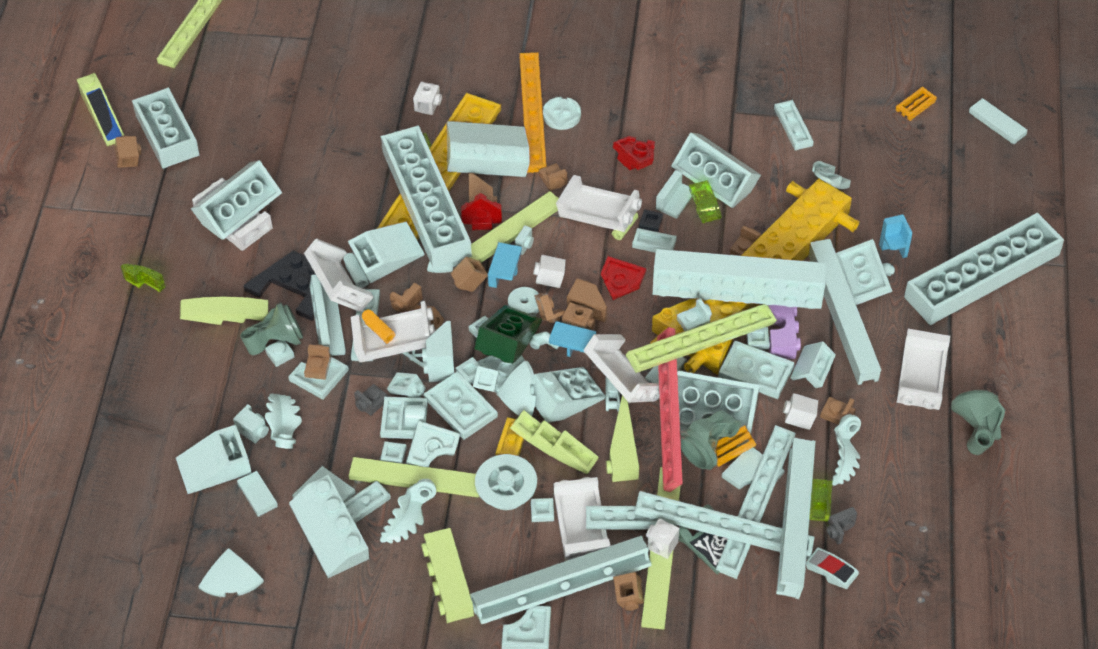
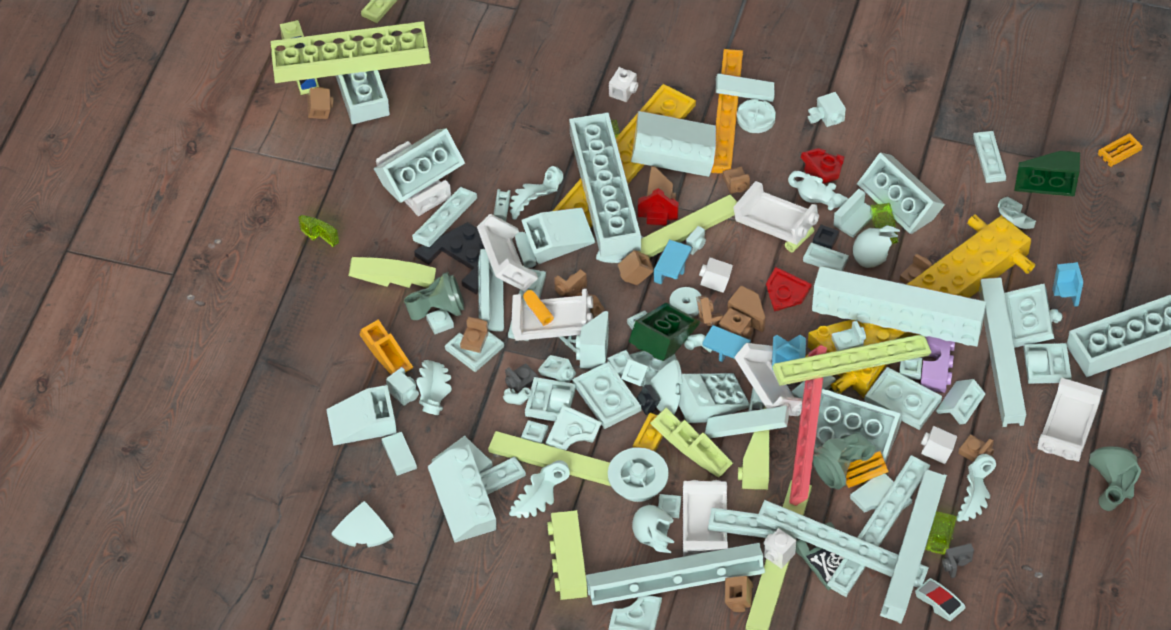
camera: 10 degrees right, 0 degrees up
(151, 100) = (350, 55): none -> yellowish green tile
(227, 387) = (385, 347): none -> light orange slope
(269, 248) = (444, 217): none -> light aqua tile
(325, 228) = (501, 206): none -> light aqua bar
(369, 421) = (518, 399): none -> light aqua arm
(371, 201) = (552, 179): none -> light aqua plant
(503, 404) = (648, 399): none -> black plate
(528, 535) = (651, 527): none -> light aqua helmet
(546, 87) = (745, 87): none -> light aqua tile
(607, 414) = (747, 422): none -> light aqua tile
(632, 98) = (828, 109): none -> light aqua brick
(632, 178) = (814, 191): none -> light aqua animal
(635, 337) = (788, 351): none -> medium azure panel
(699, 223) = (873, 245): none -> light aqua helmet
(856, 134) = (1049, 174): none -> dark green slope
(889, 316) = (1046, 363): none -> light aqua plate

